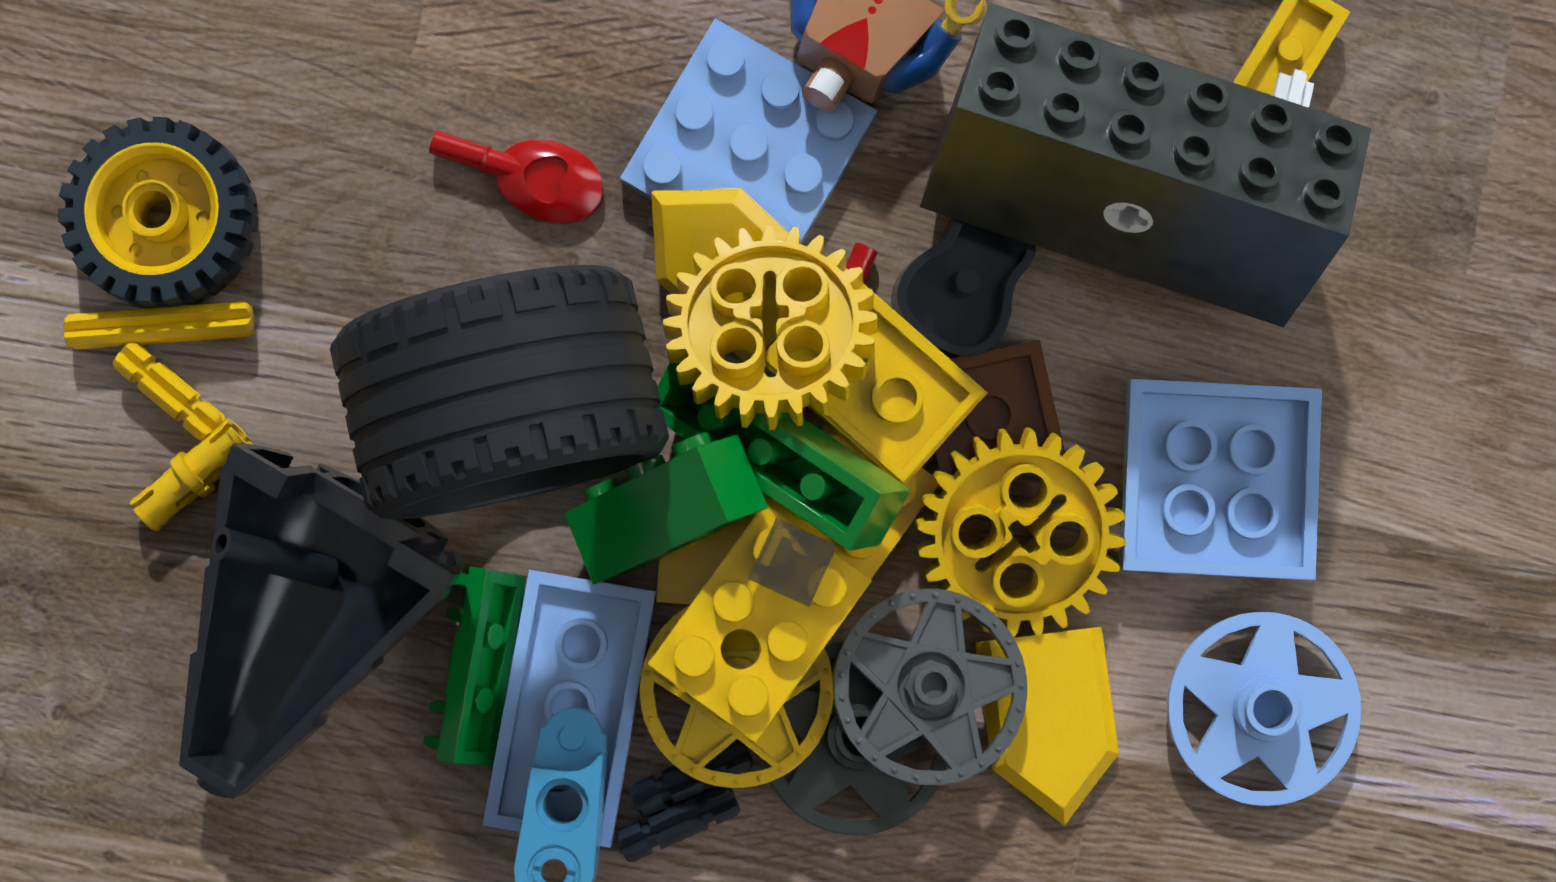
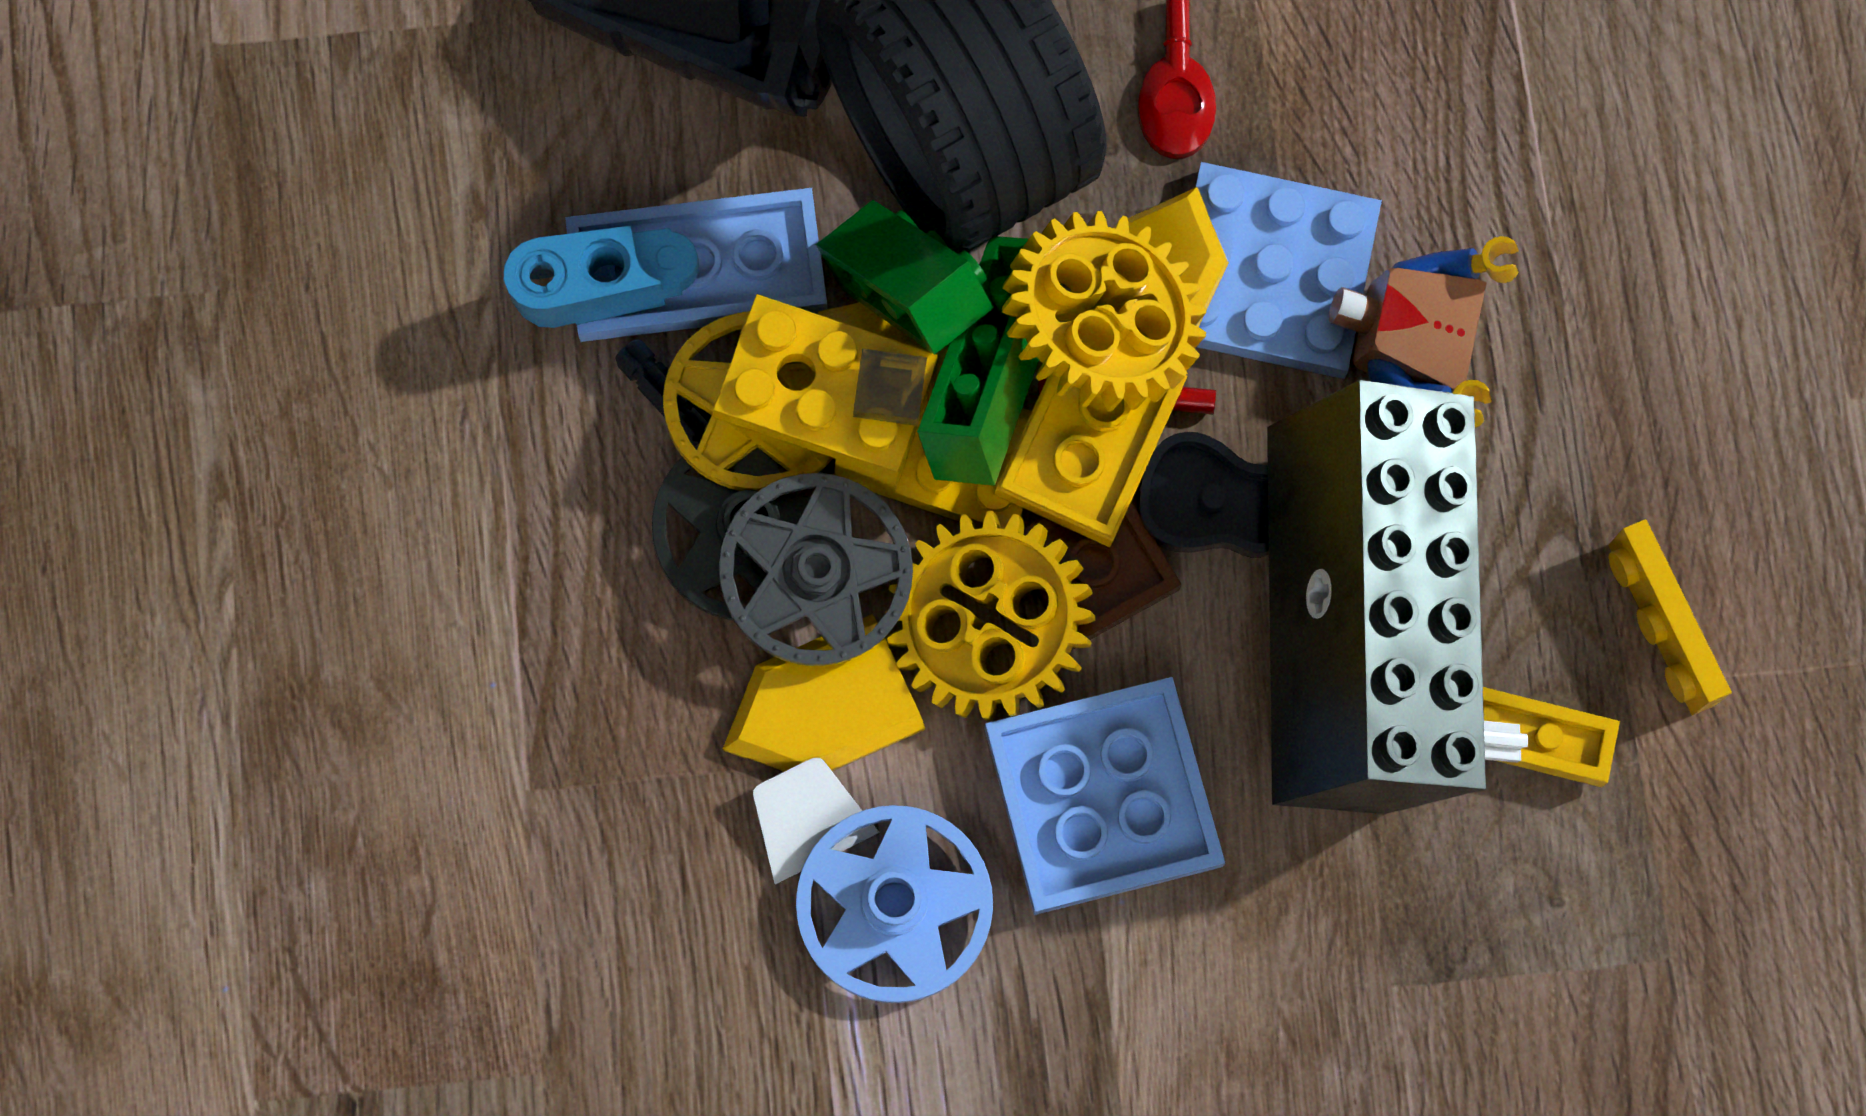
camera: 70 degrees right, 10 degrees down
(478, 667) = (709, 170): green plate -> none
(677, 822) = (619, 392): black axle -> none
(1149, 770) = (799, 810): none -> white sticker

